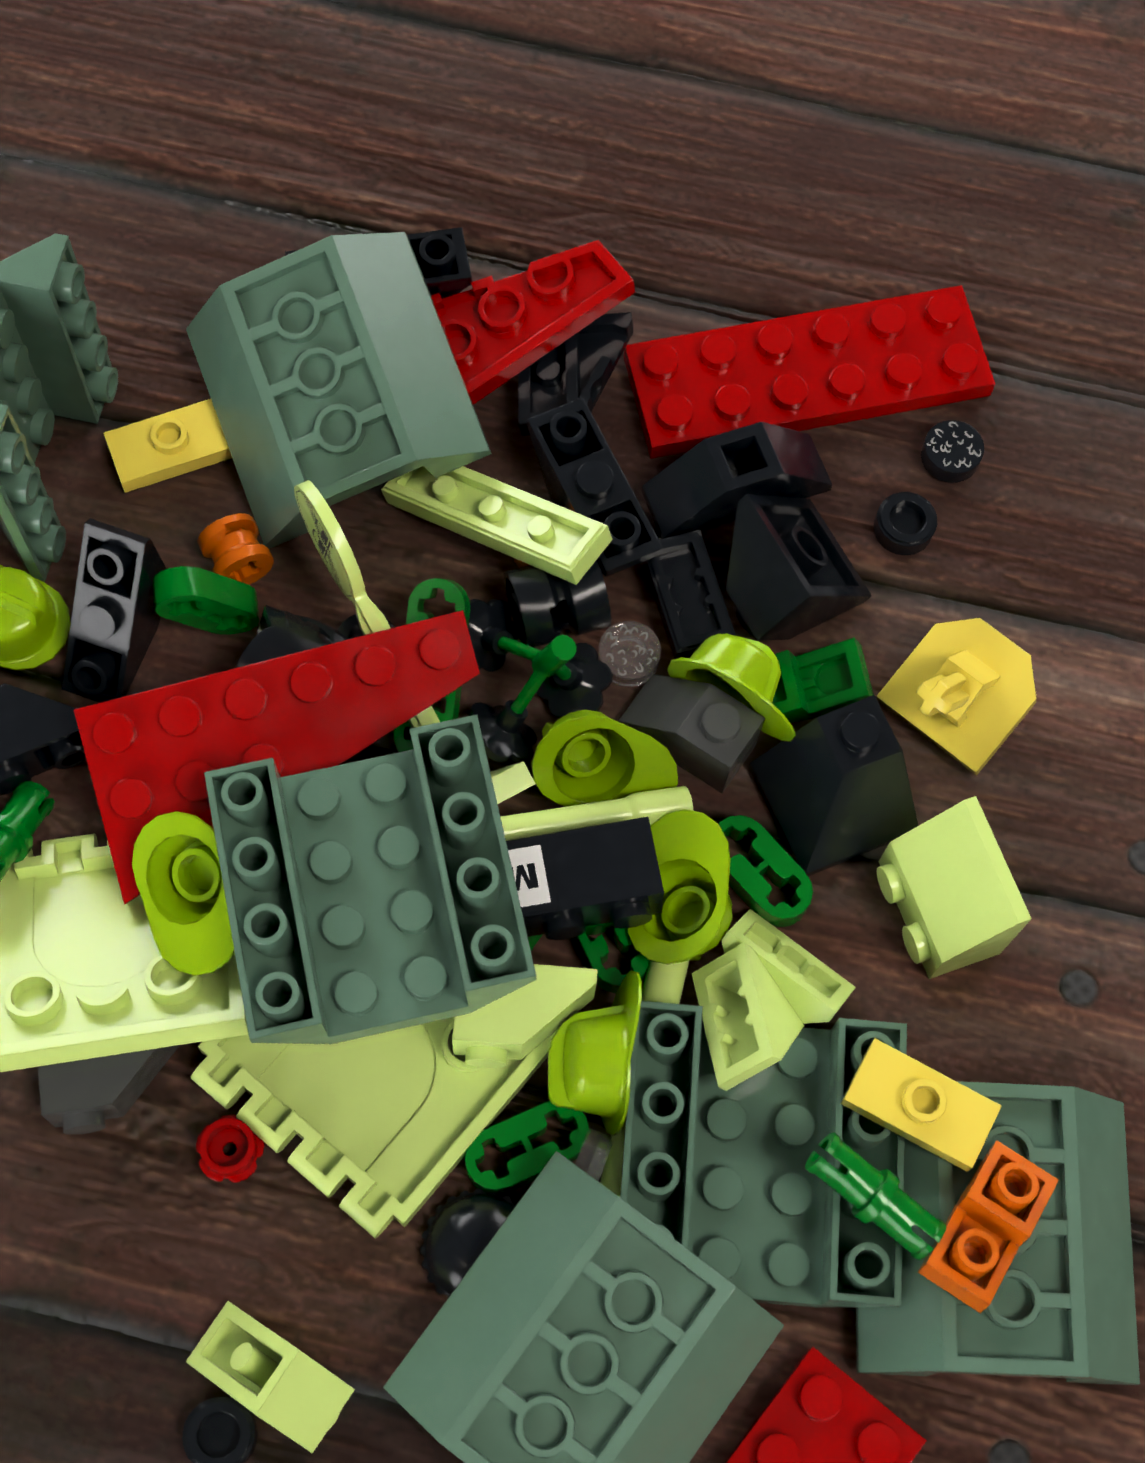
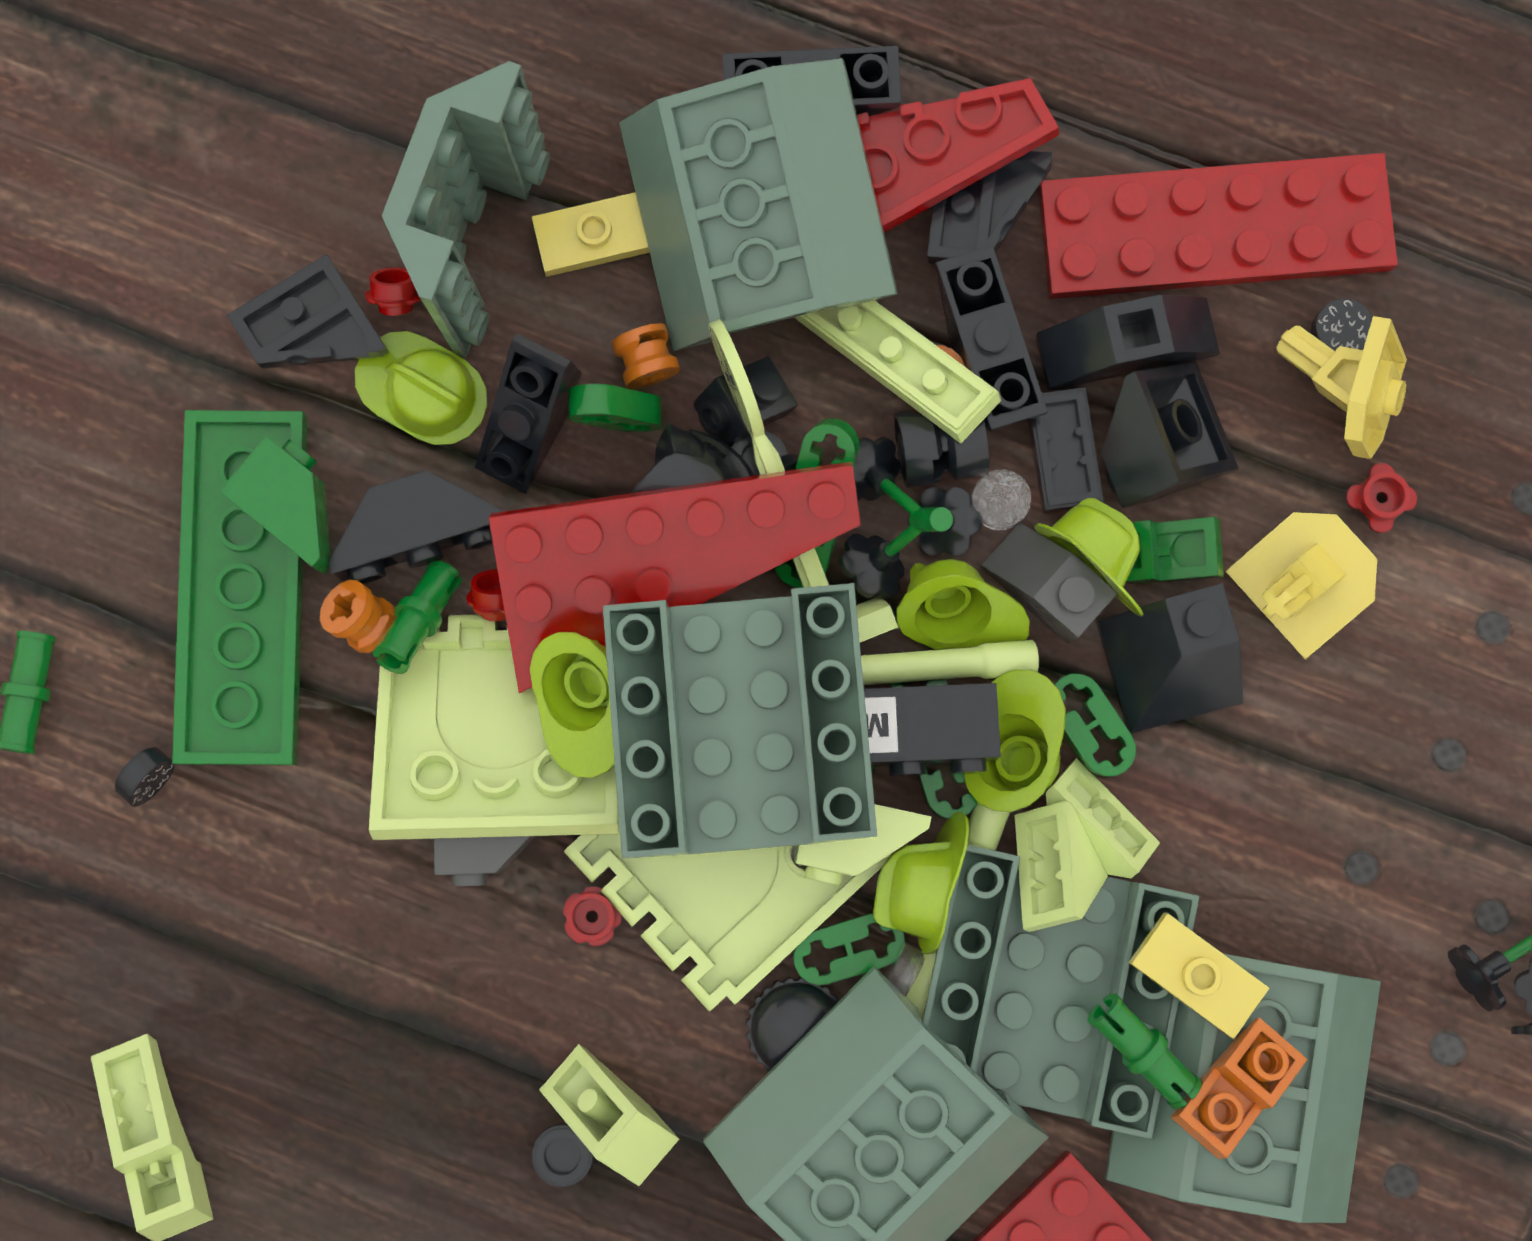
camera: 10 degrees right, 15 degrees up
(83, 813) = (486, 596): none -> red plate
(322, 599) = (719, 411): none -> black bracket
(905, 523) = (1283, 398): black tile -> none
(952, 890) = (1261, 776): yellowish green slope -> none
(975, 489) = (1356, 380): none -> light yellow piece
(1035, 594) = (1395, 488): none -> red plate

